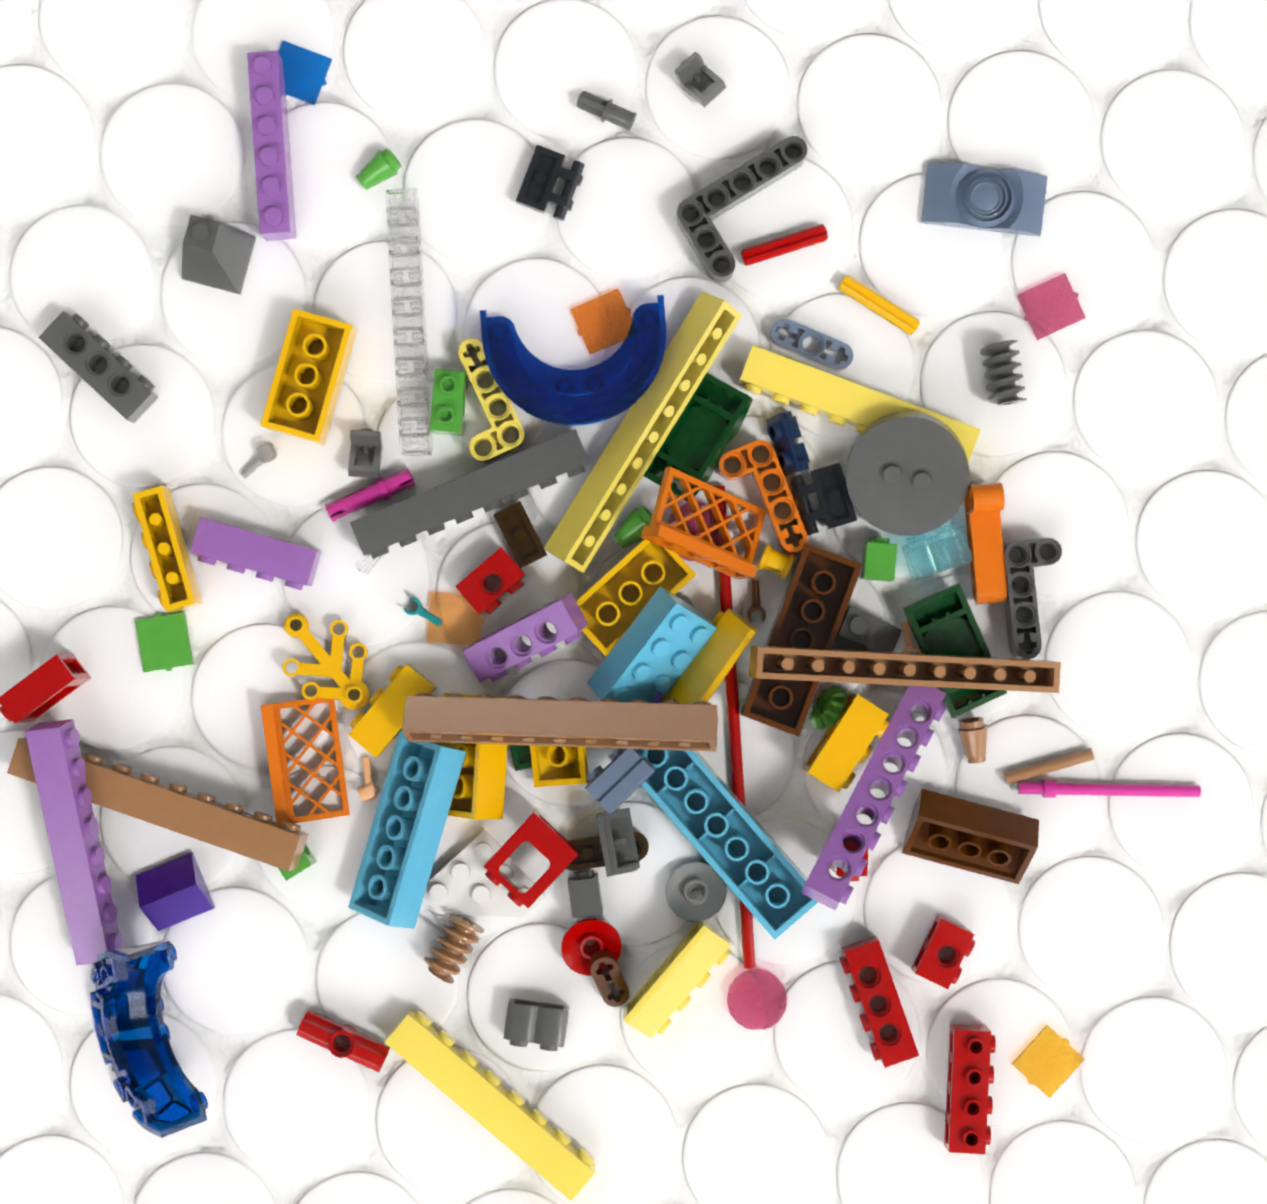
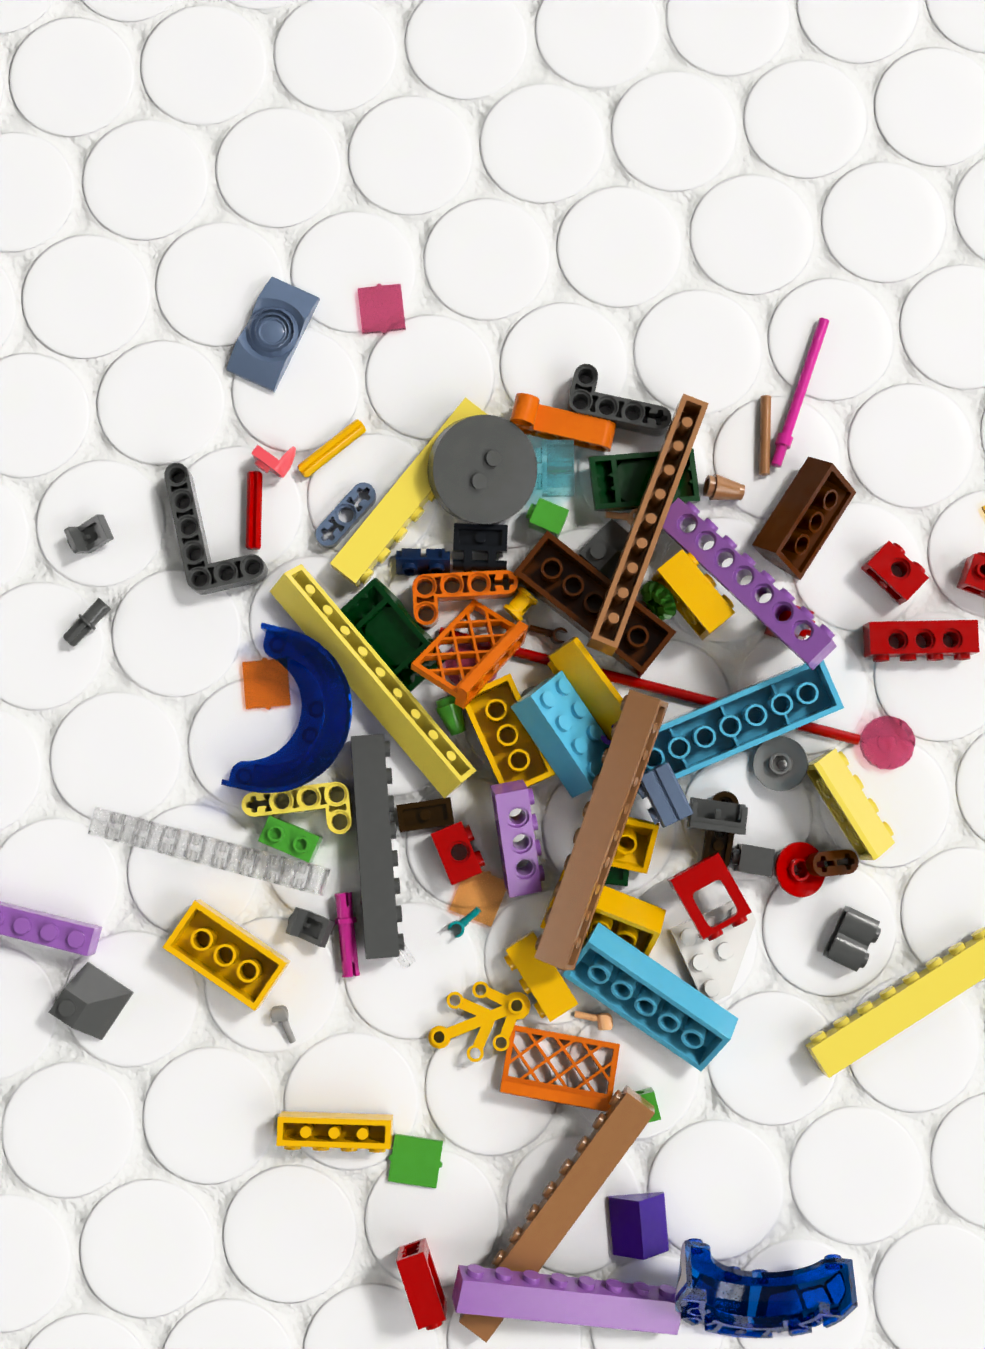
camera: 75 degrees left, 5 degrees down
(61, 338) = (116, 1165): dark grey brick -> none
(255, 552) = (363, 1053): medium lavender brick -> none
(324, 1033) = (829, 1099): red piece -> none
(379, 168) = (67, 833): bright green cone -> none
(453, 947) = (764, 990): medium nougat piece -> none
(541, 179) = (127, 697): black plate -> none
(840, 241) = (267, 462): none -> coral plate
(1002, 373) = (424, 365): dark grey piece -> none

